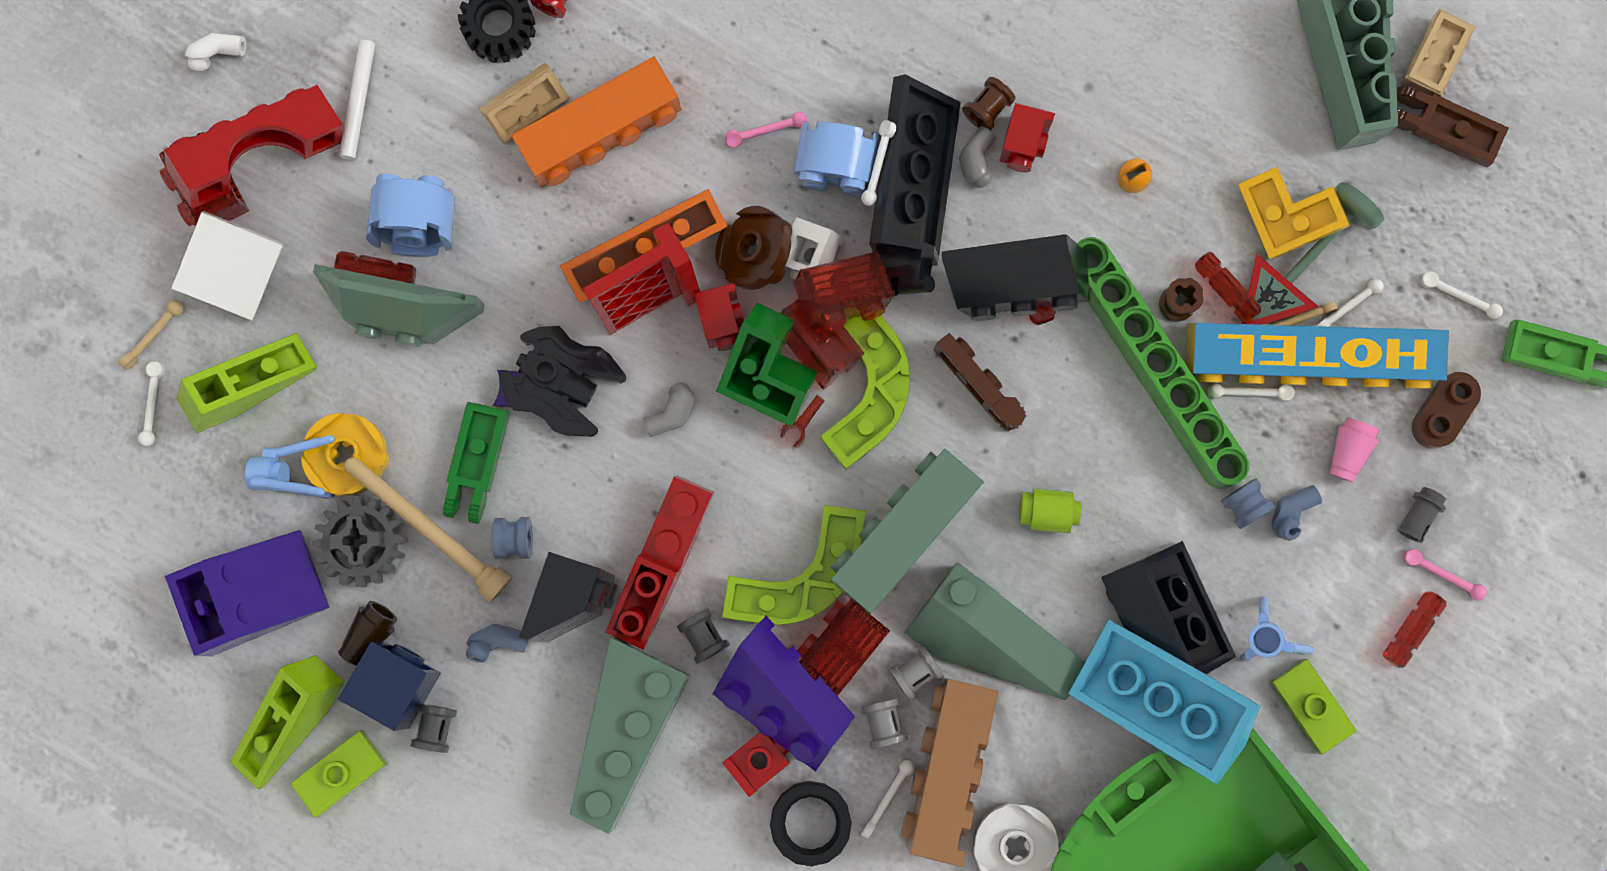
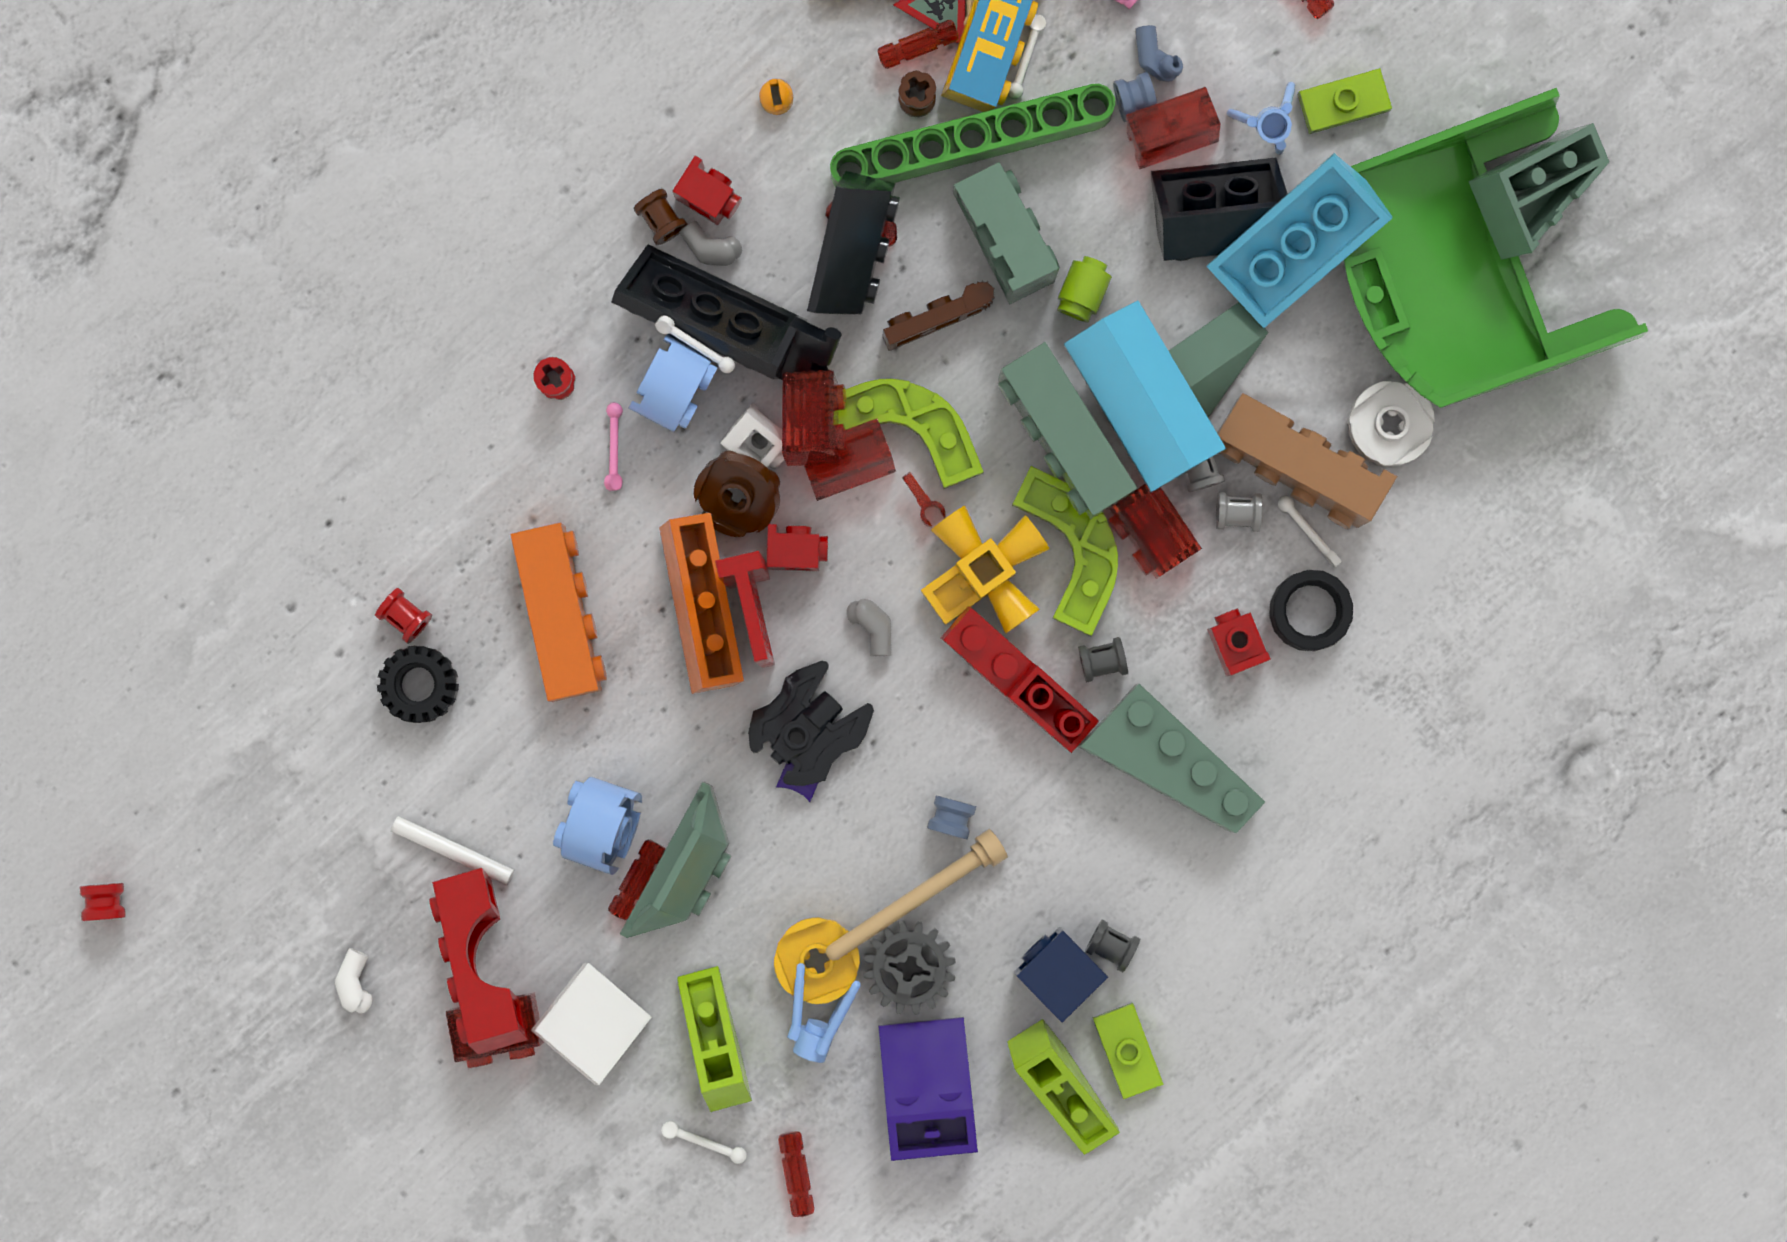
camera: 75 degrees left, 5 degrees up
(141, 496) = (796, 1174): none -> clear red axle
(174, 308) = (613, 1094): tan hinge -> none
(369, 625) = (999, 984): dark brown cone -> none
(475, 458) = (859, 830): green hinge -> none
(492, 637) = (1041, 863): sand blue arm -> none
(524, 102) = (513, 680): tan plate -> none
(566, 598) = (1033, 771): black slope -> none
(753, 497) = (984, 570): none -> yellow brick
(760, 374) = (866, 524): green brick -> none
(782, 698) = (1188, 599): dark purple wedge -> none
(813, 67) = (559, 366): none -> red bush
(963, 595) = (1144, 395): none -> medium azure slope
(1079, 421) = (1006, 232): none -> sand green wedge
(1231, 548) = (1173, 127): none -> clear red hinge

